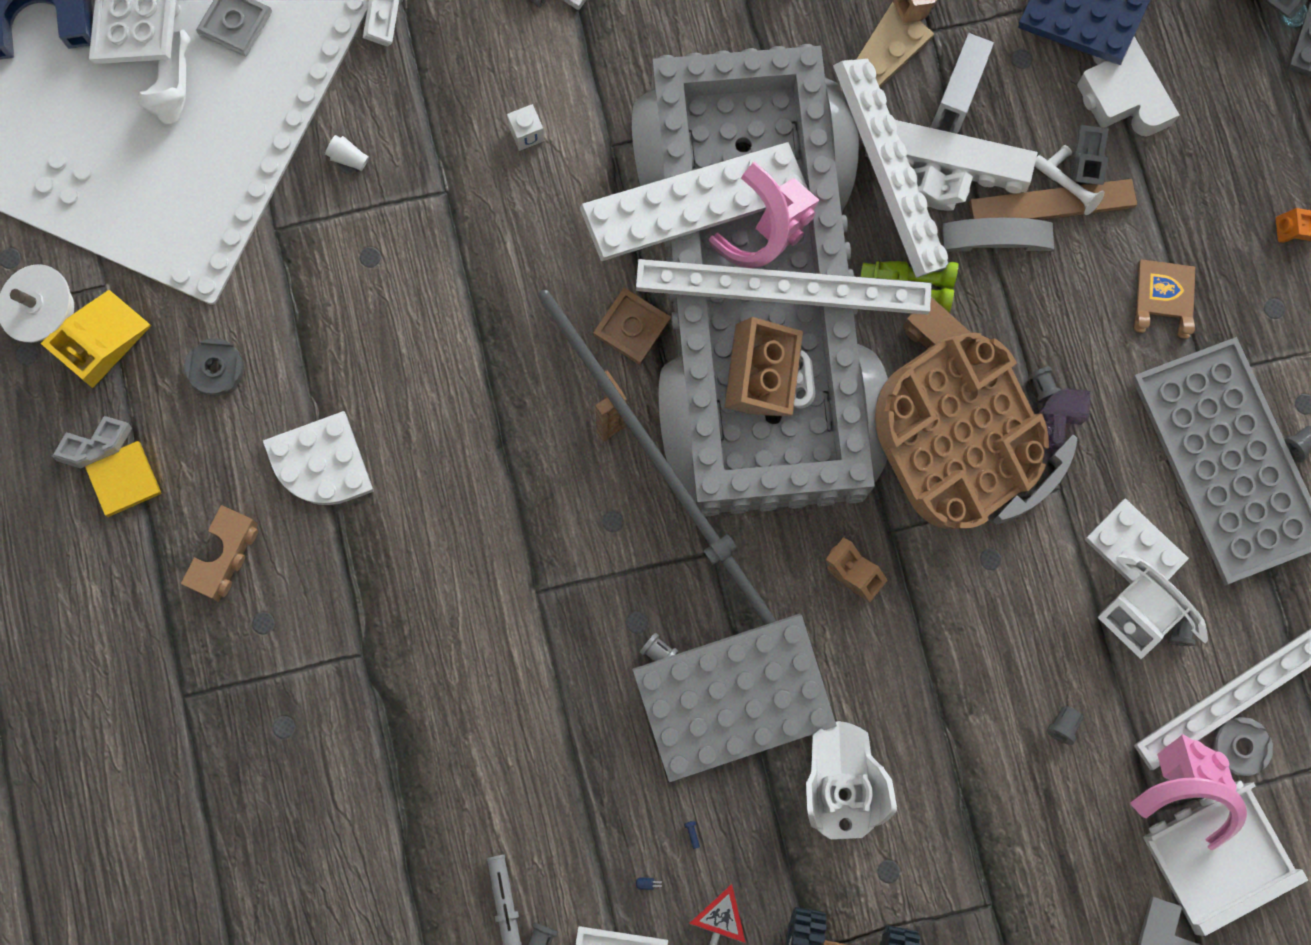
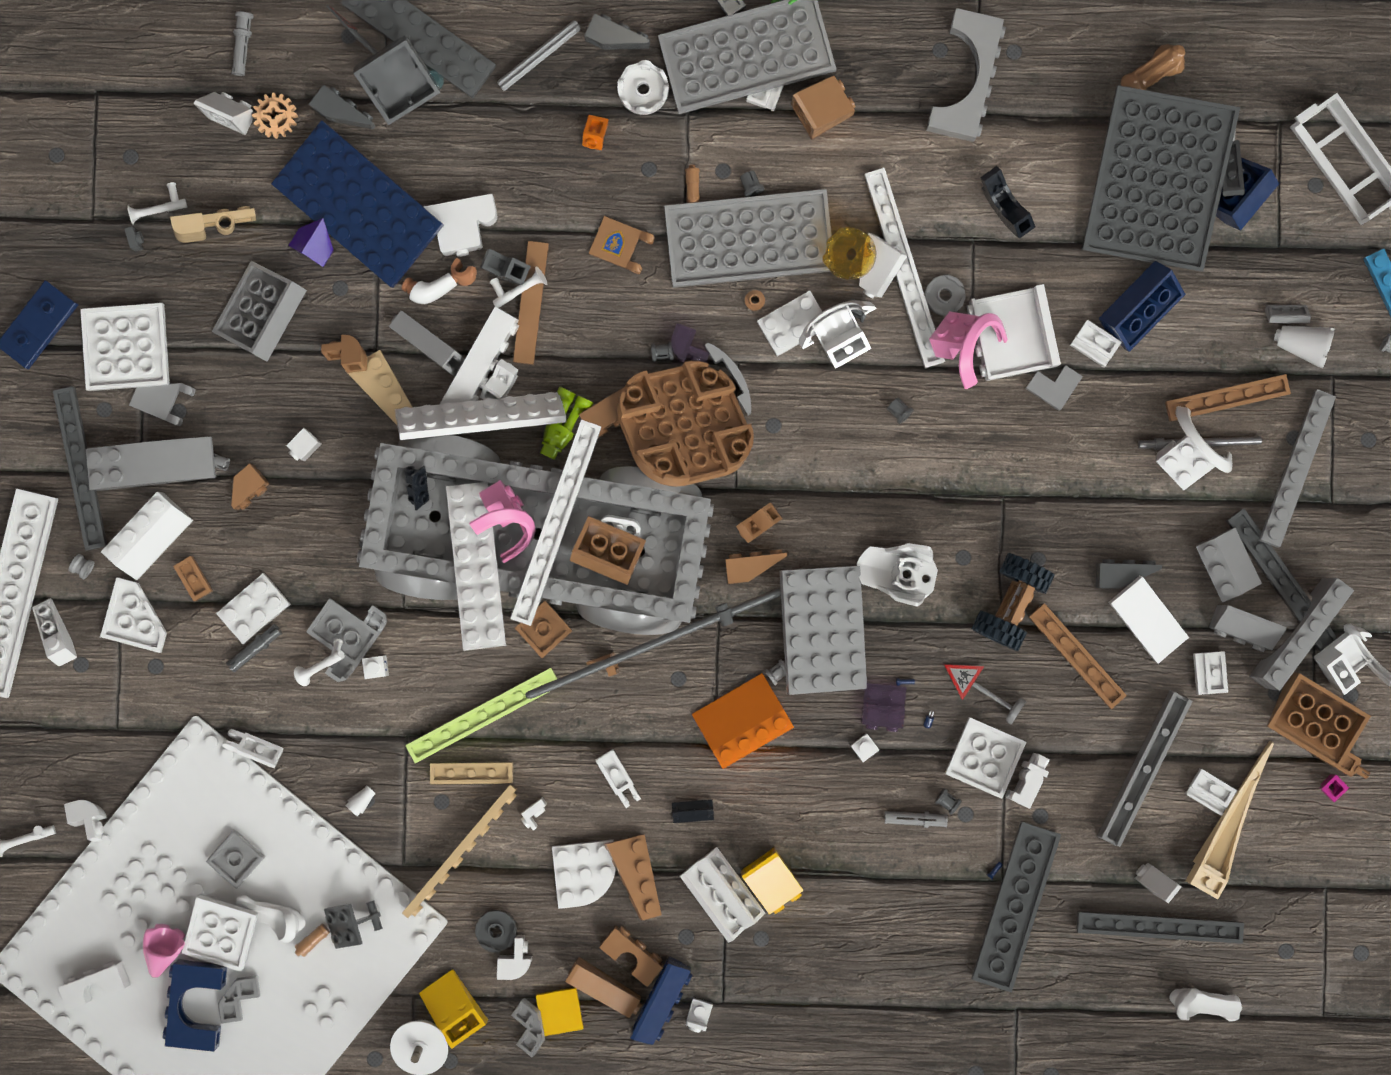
camera: 70 degrees left, 10 degrees up
(45, 60) = (230, 1003): none -> light grey tile
(148, 137) = (311, 940): none -> medium nougat piece
(157, 667) = (698, 1015): none -> white bracket
(164, 607) = (660, 1002): none -> dark blue slope
(167, 524) = (603, 988): none -> medium nougat slope
(172, 402) = (514, 966): none -> white brick
(175, 169) = (345, 926): none -> dark grey plate
(320, 297) = (455, 859): none -> tan plate
(332, 656) = (722, 894): none -> white slope
(338, 528) = (634, 867): none -> medium nougat wing
(366, 719) = (772, 881): none -> slope
(389, 376) = (535, 809): none -> white bracket
(417, 283) = (471, 773): none -> tan plate
(437, 585) = (692, 811): none -> black hinge
(459, 472) = (617, 776): none -> white hinge
(491, 43) = (303, 675): none -> white piece
(495, 276) = (477, 717): none -> yellowish green plate
(556, 82) = (357, 635): none -> light grey piece
(578, 621) = (742, 720): none -> orange slope
(585, 801) = (864, 747): none -> white plate
(650, 812) = (883, 707): none -> clear purple plate
(778, 106) = (417, 487): none -> black hinge
(788, 572) = (747, 568): none -> medium nougat slope
(998, 233) = (544, 349): light grey slope -> none
(1027, 75) = (425, 293): none -> piece
(1143, 492) = (754, 293): none -> medium nougat plate
(1254, 641) = (884, 270): none -> white slope
(1263, 577) = (837, 249): none -> clear yellow plate
(1277, 367) = (692, 182): none -> medium nougat piece

